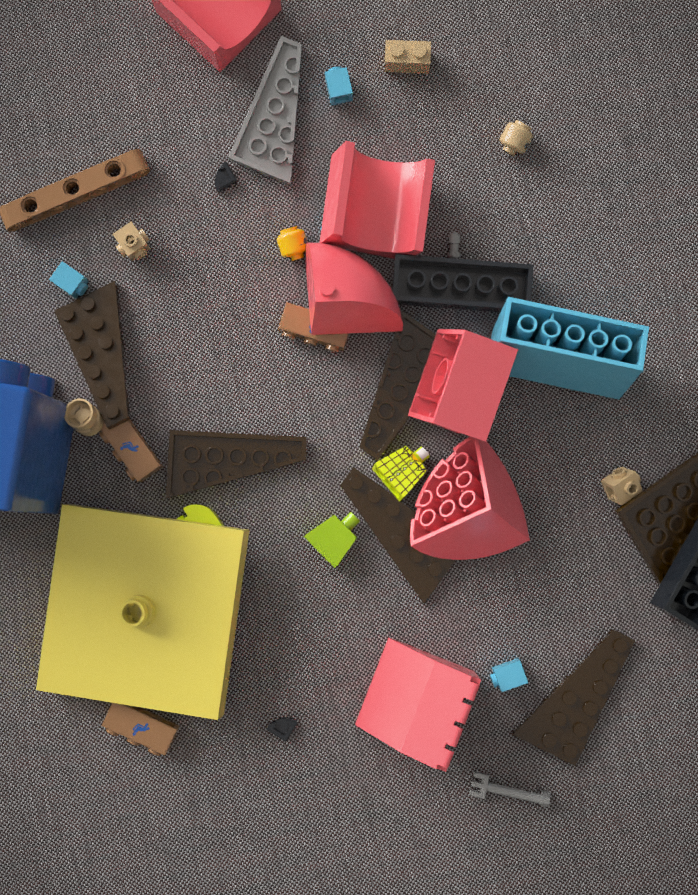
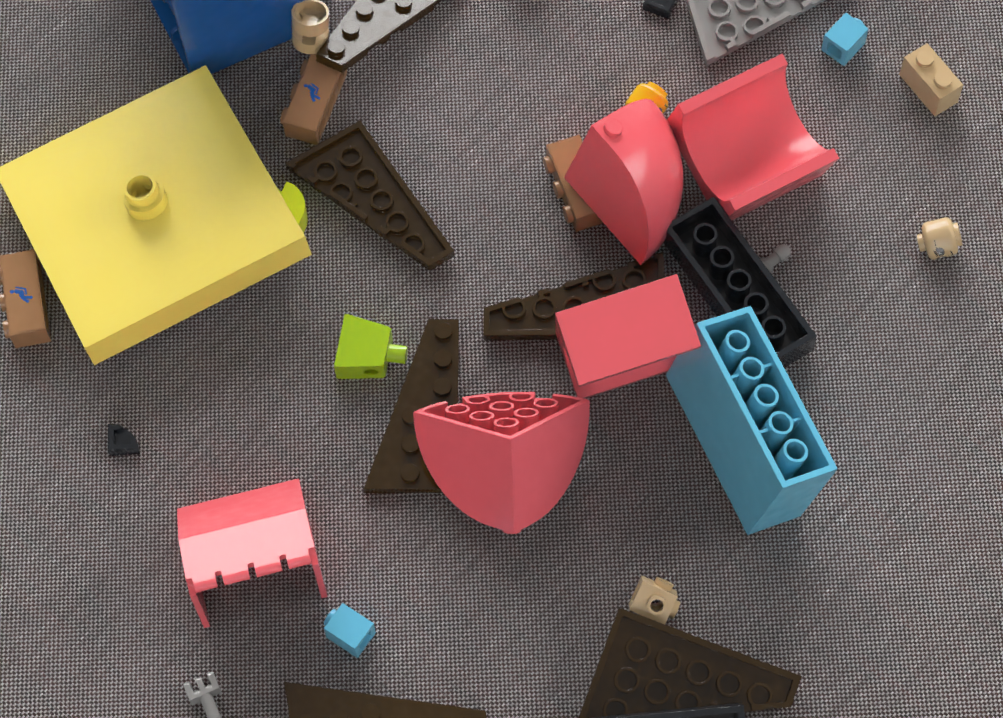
camera: 50 degrees right, 20 degrees down
(401, 470) = (491, 365): neon yellow torso -> none

